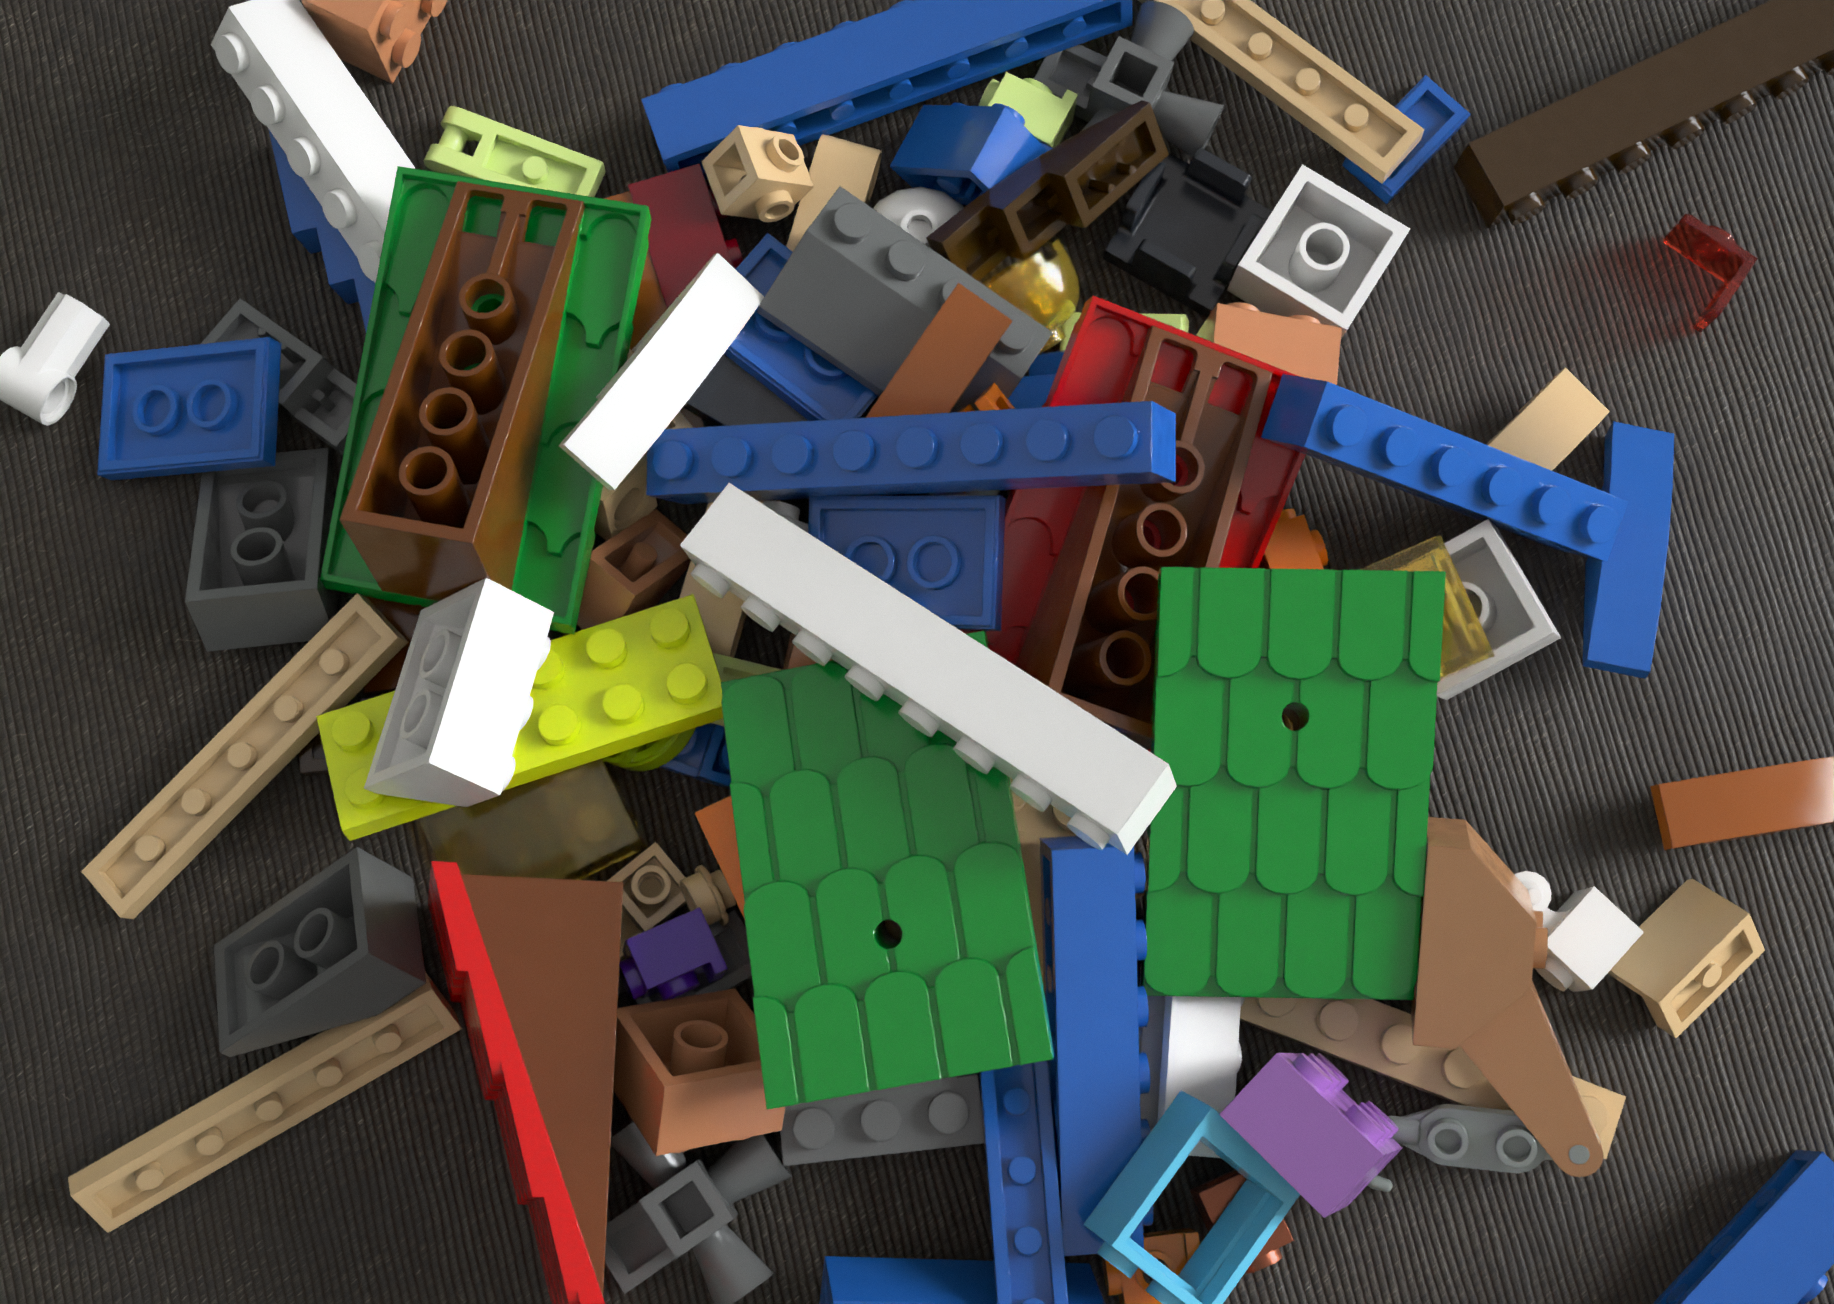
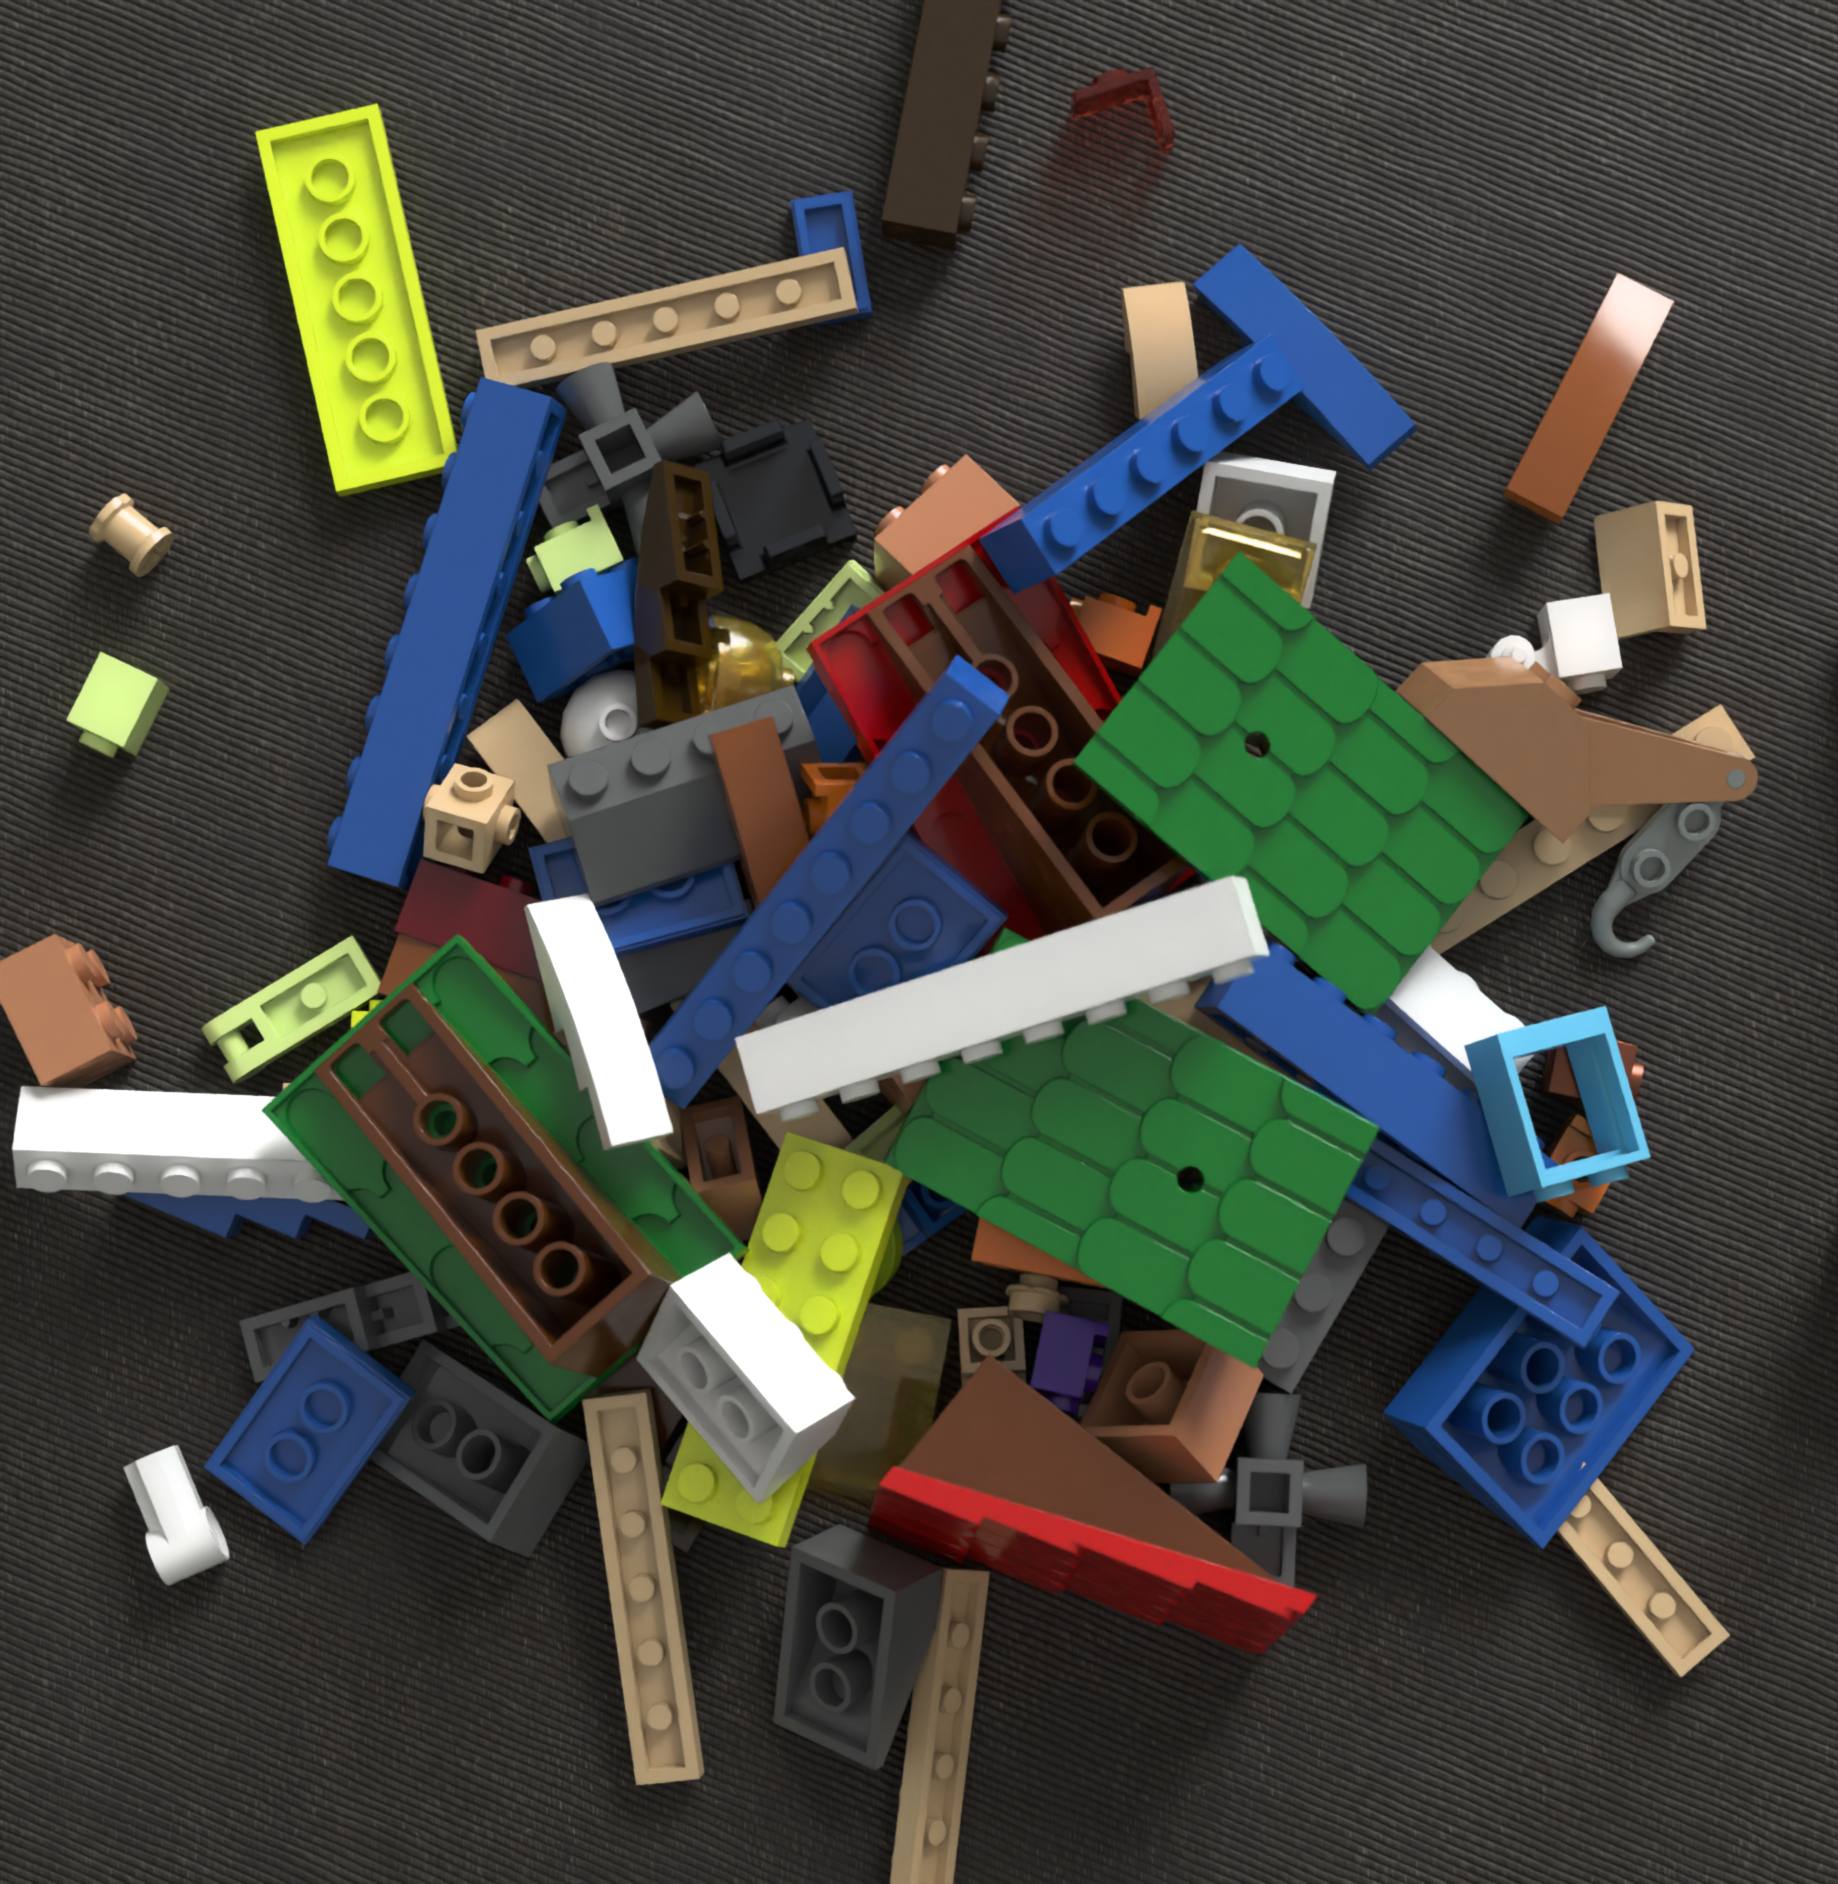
camera: 45 degrees left, 5 degrees up
(1313, 1129) = (1568, 967): medium lavender brick -> none
(1317, 253) = (883, 416): white brick -> none

